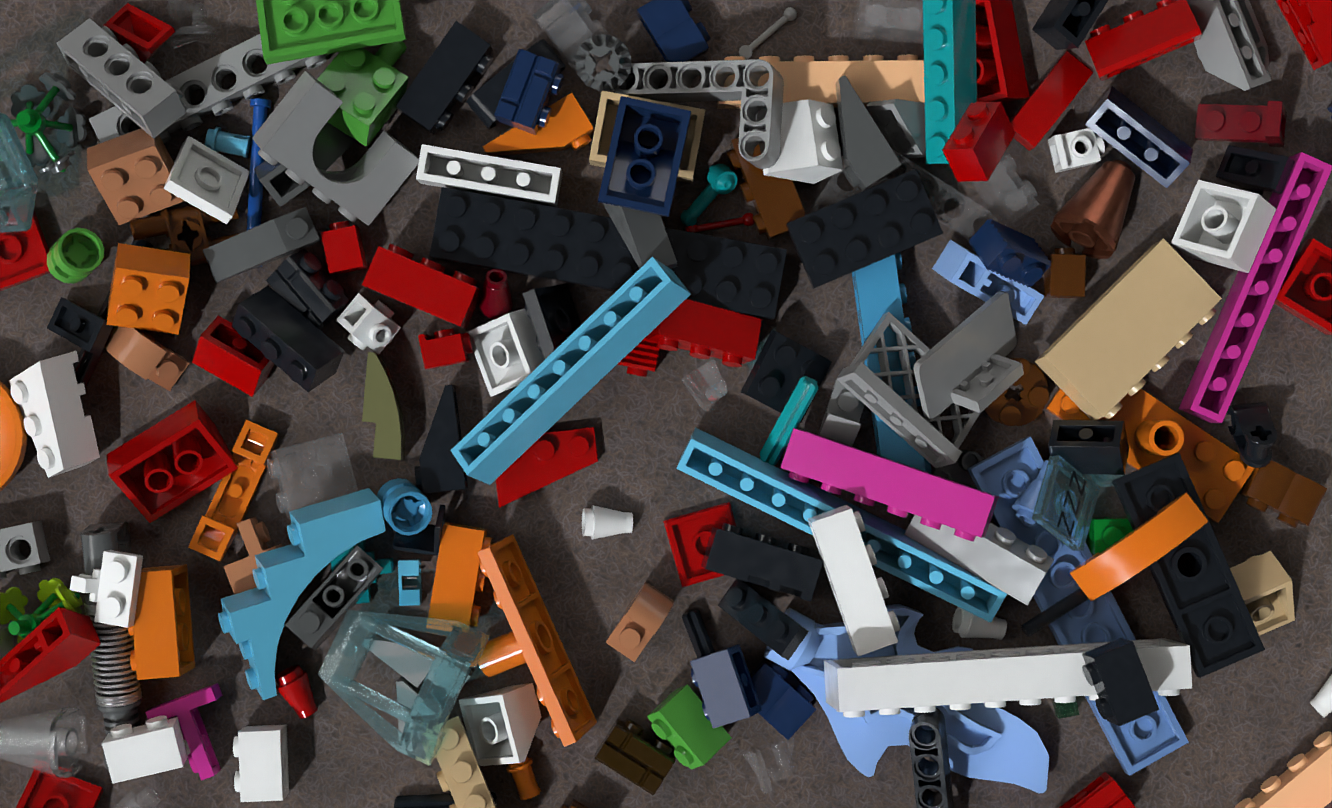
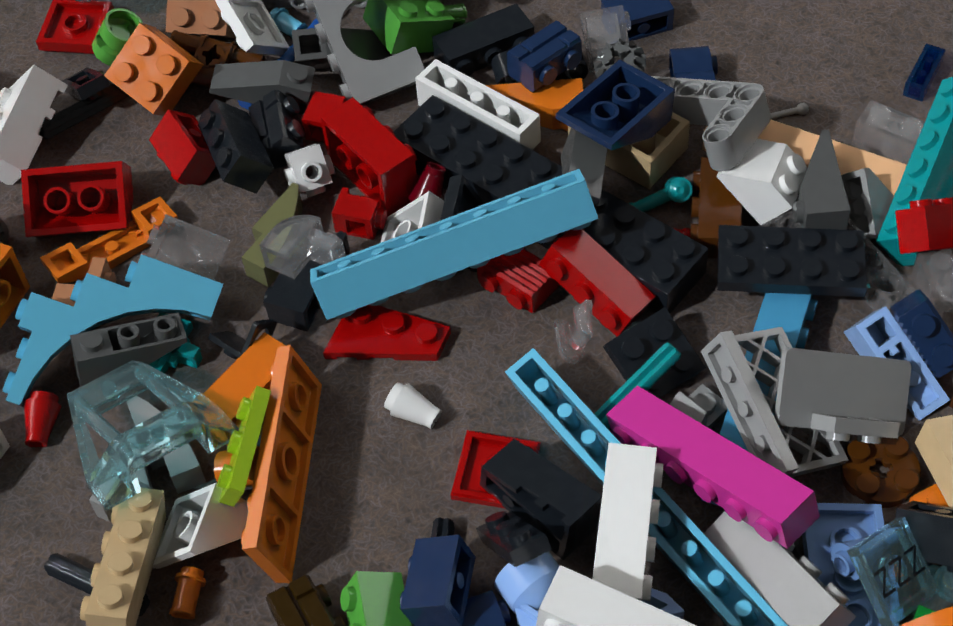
camera: 35 degrees right, 35 degrees down
(146, 356) = (118, 123): nougat brick -> none
(404, 506) = (240, 304): dark azure wheel -> none
(409, 582) = (205, 372): medium azure piece -> none
(419, 429) = (297, 242): none -> clear brick
(507, 655) = (243, 446): none -> lime plate
(640, 621) = (394, 490): nougat brick -> none

